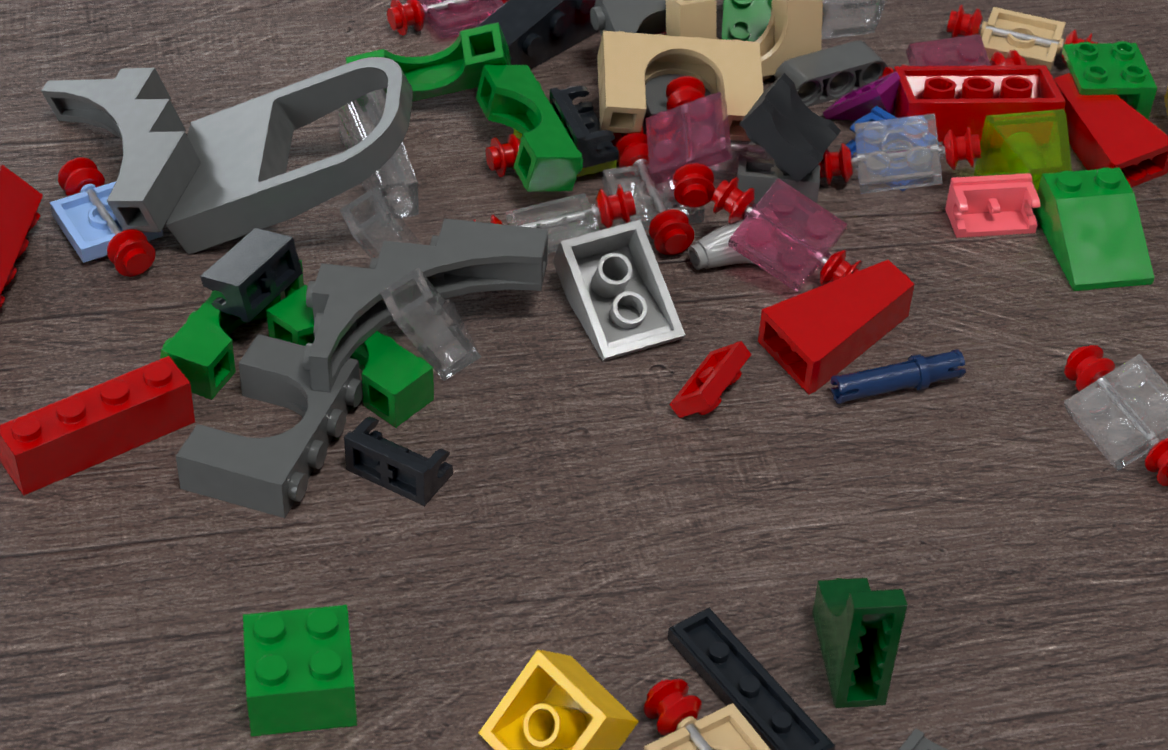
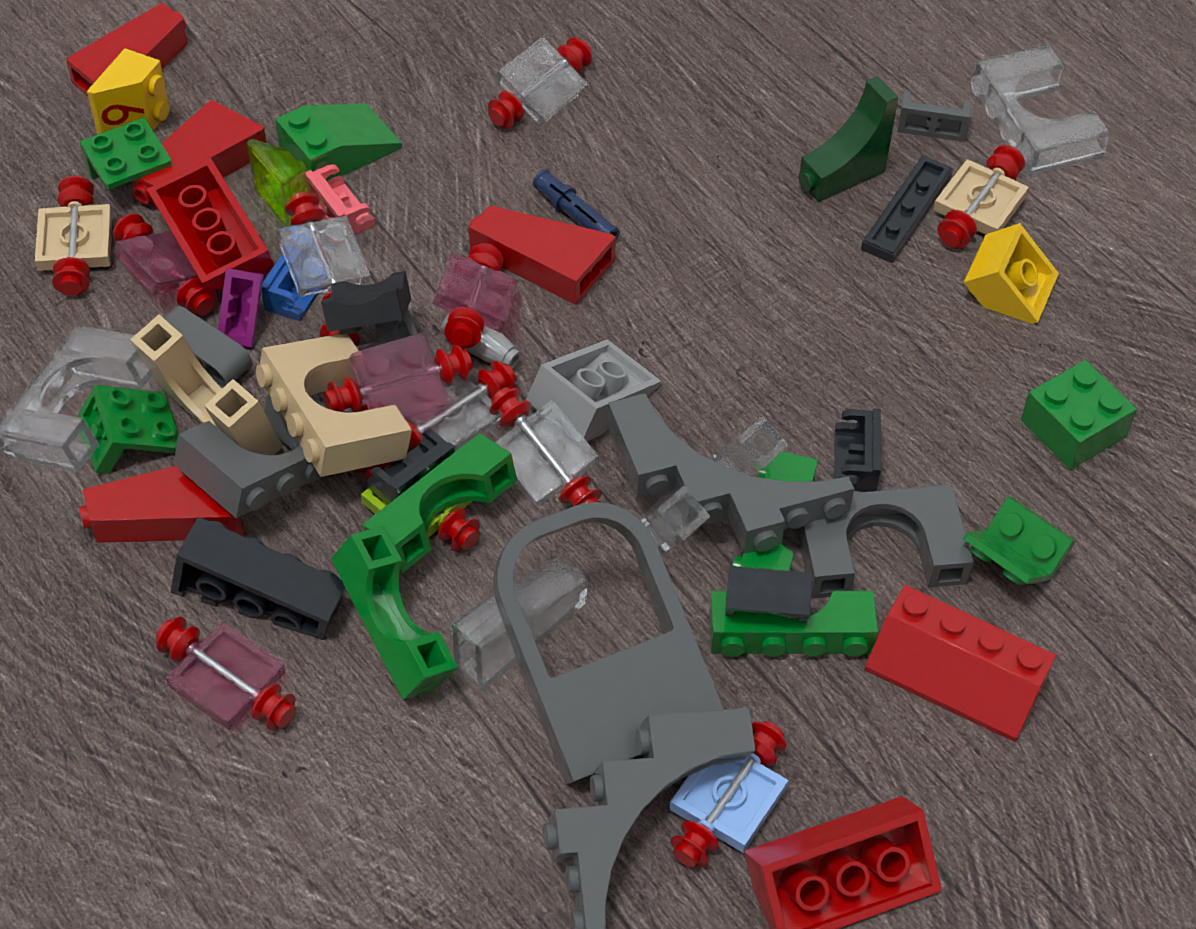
camera: 115 degrees left, 10 degrees up
(165, 500) = (1021, 544): none -> green bracket
(708, 382) = (653, 302): red plate -> none

